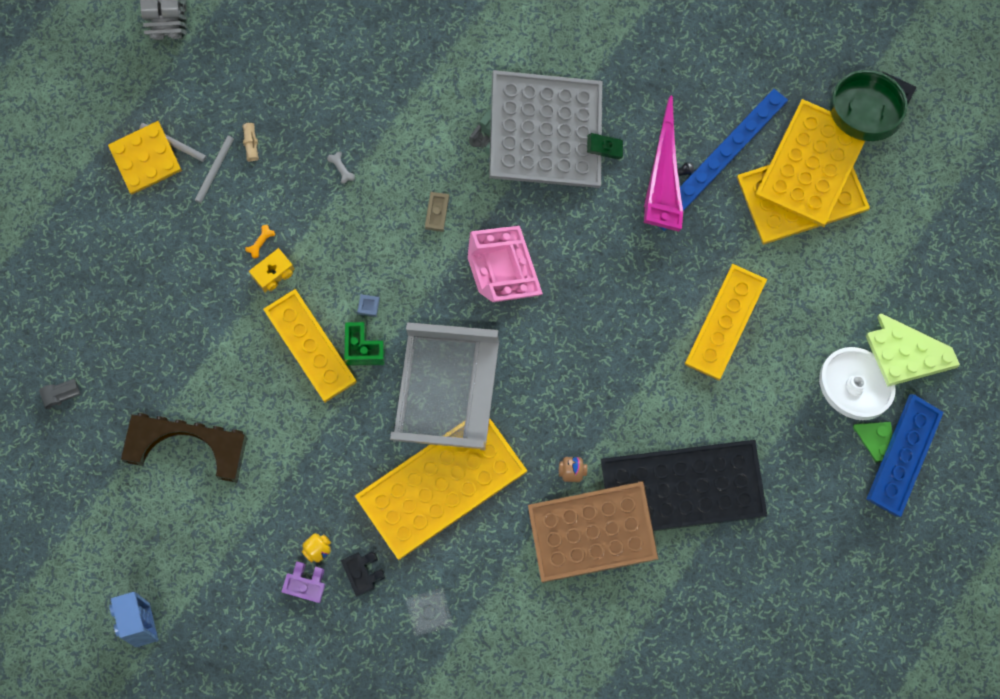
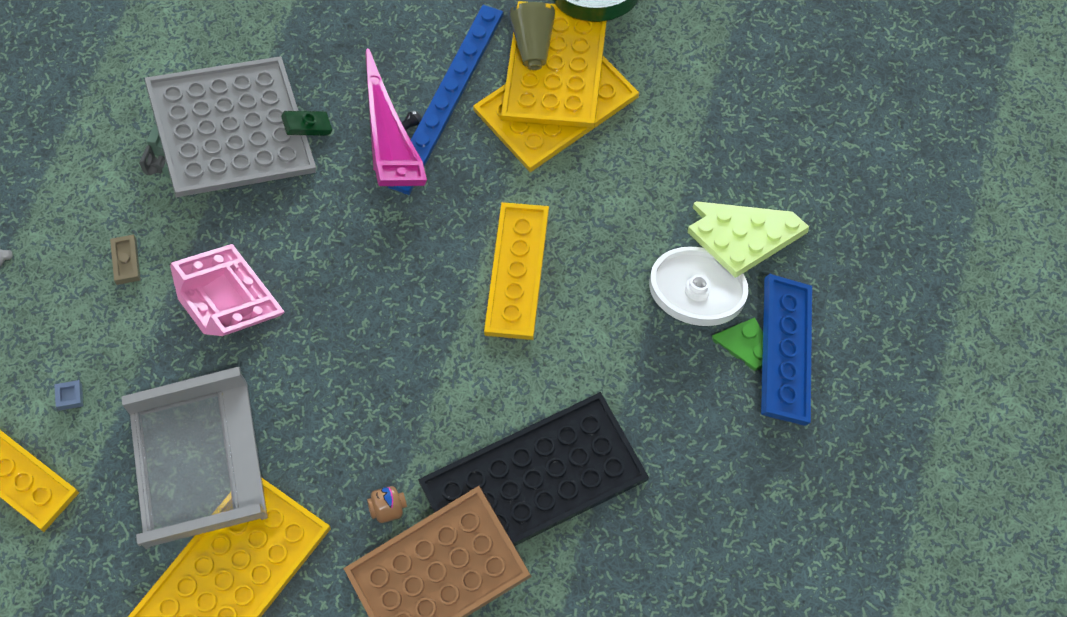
camera: 20 degrees left, 10 degrees down
(360, 351) = (72, 450): green brick -> none
(803, 135) = (533, 31): none -> olive cone

